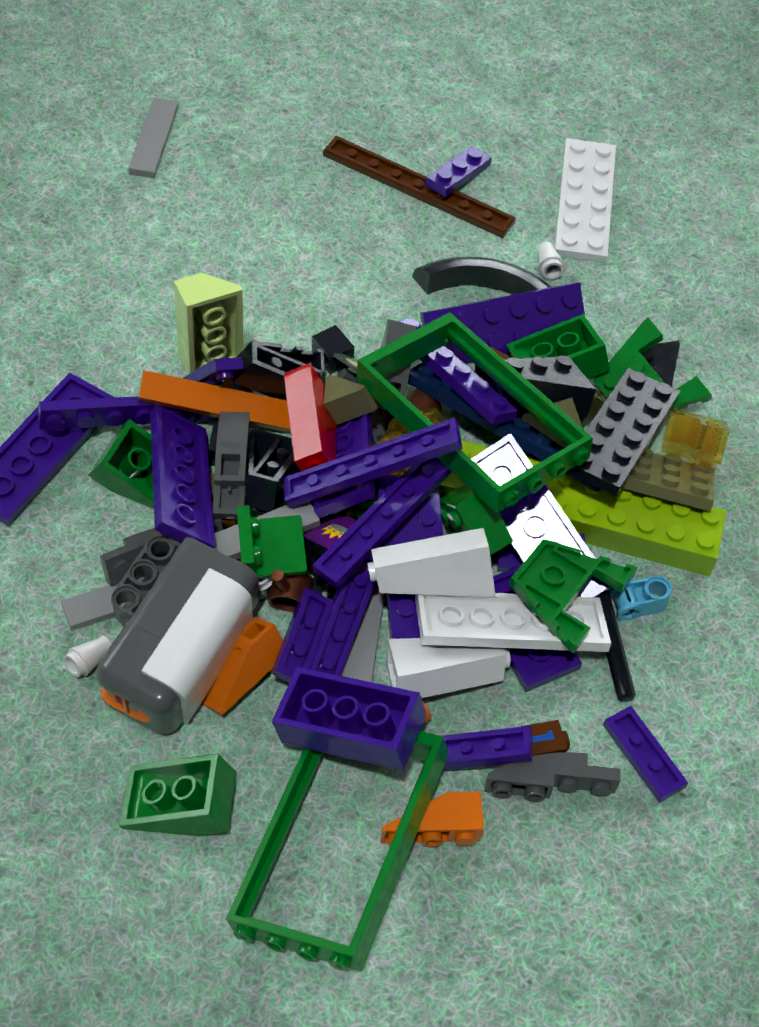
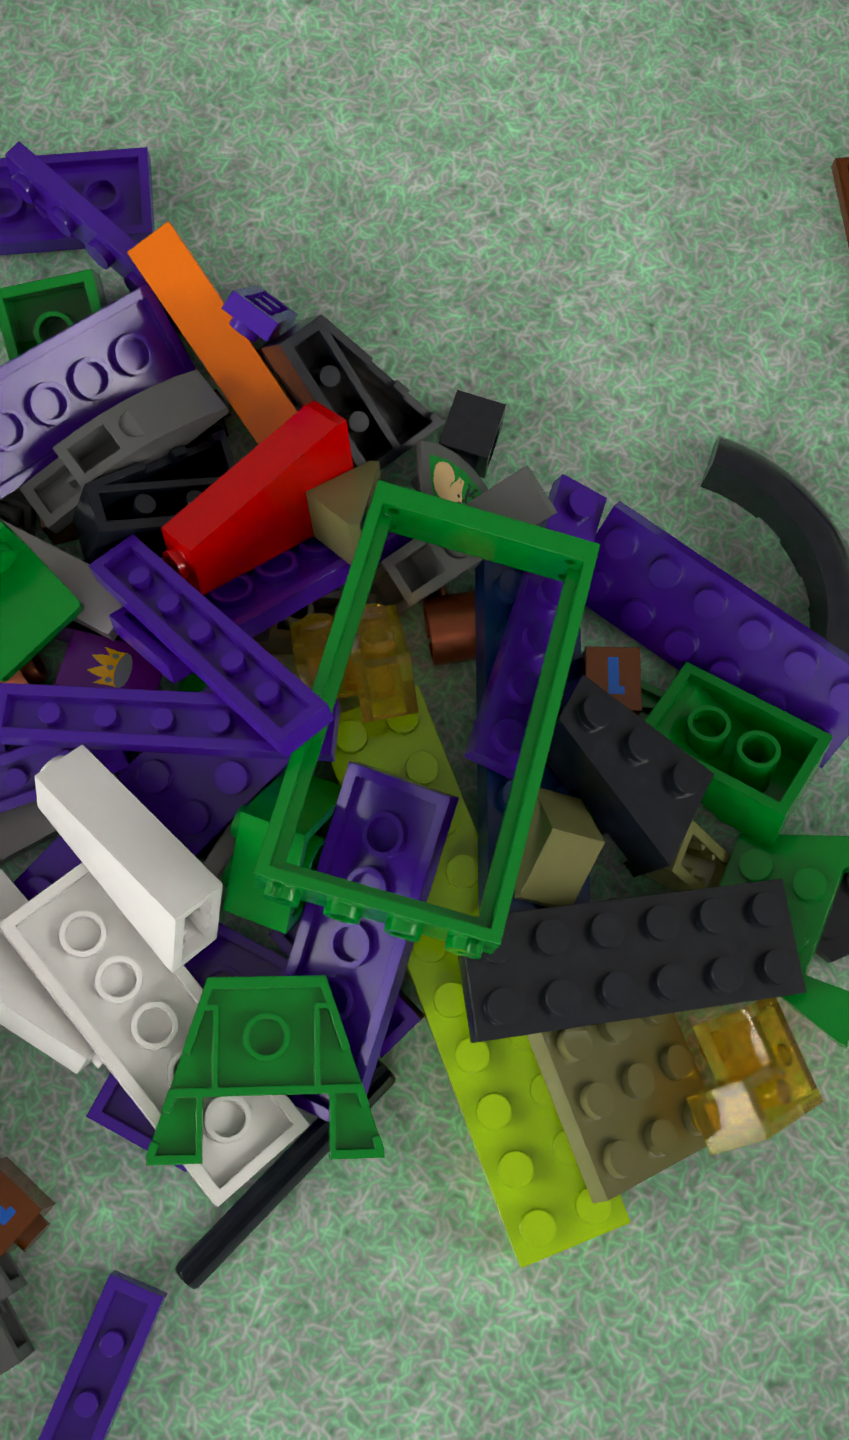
camera: 55 degrees right, 20 degrees up
(208, 319) = (314, 231): yellowish green slope -> none
(638, 600) = (370, 1182): medium azure piece -> none

